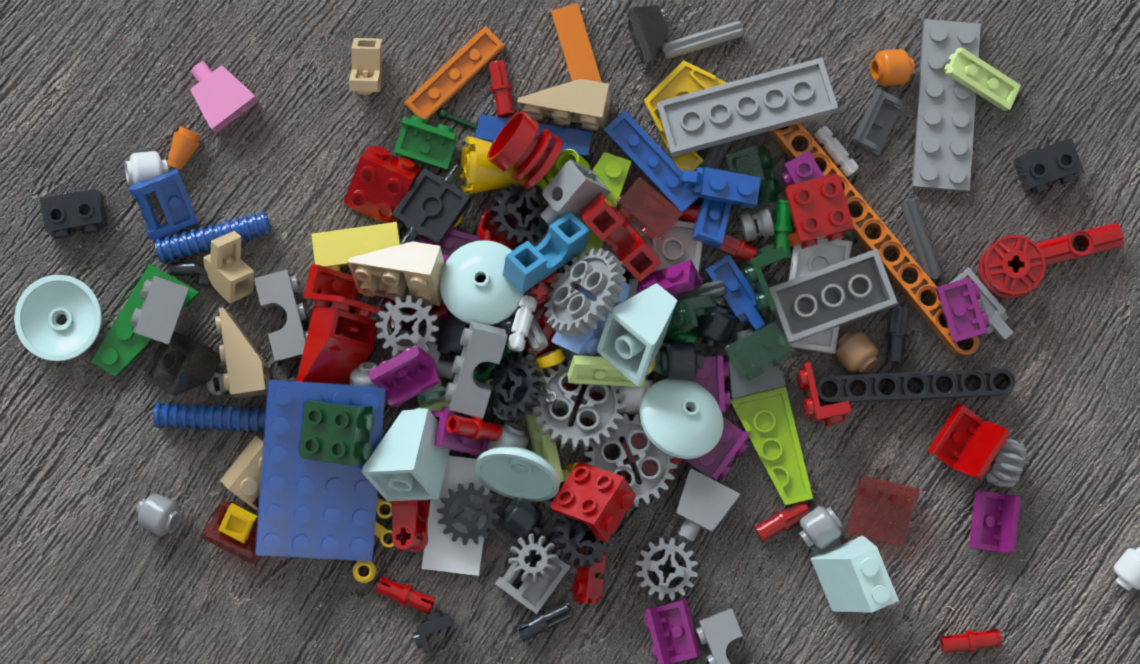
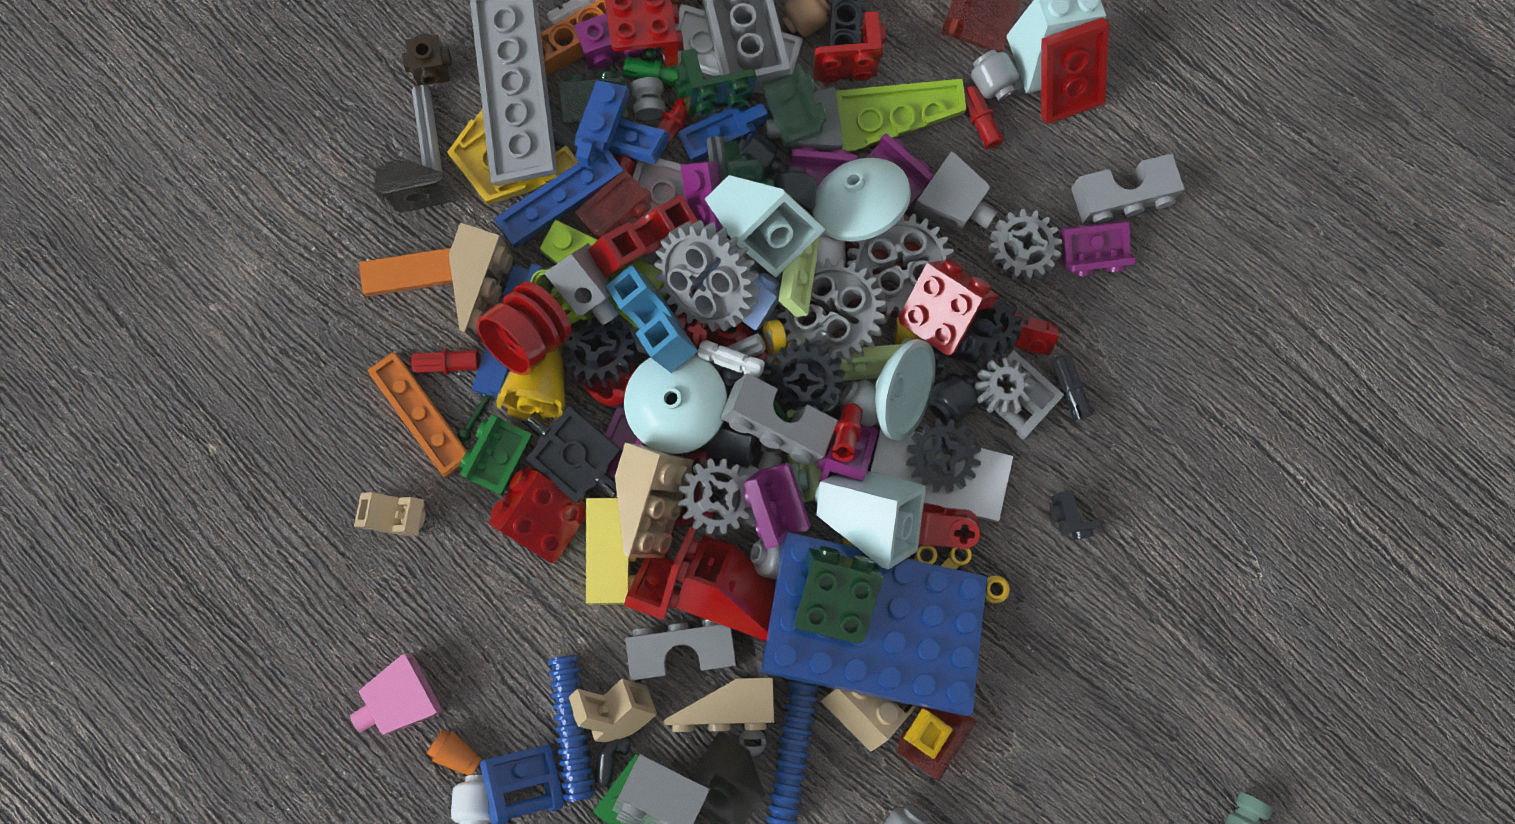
camera: 85 degrees left, 5 degrees down
(405, 595) = (1028, 543): red pin -> none
(764, 39) = (427, 59): none -> dark brown brick
(826, 593) = (1074, 70): none -> red plate

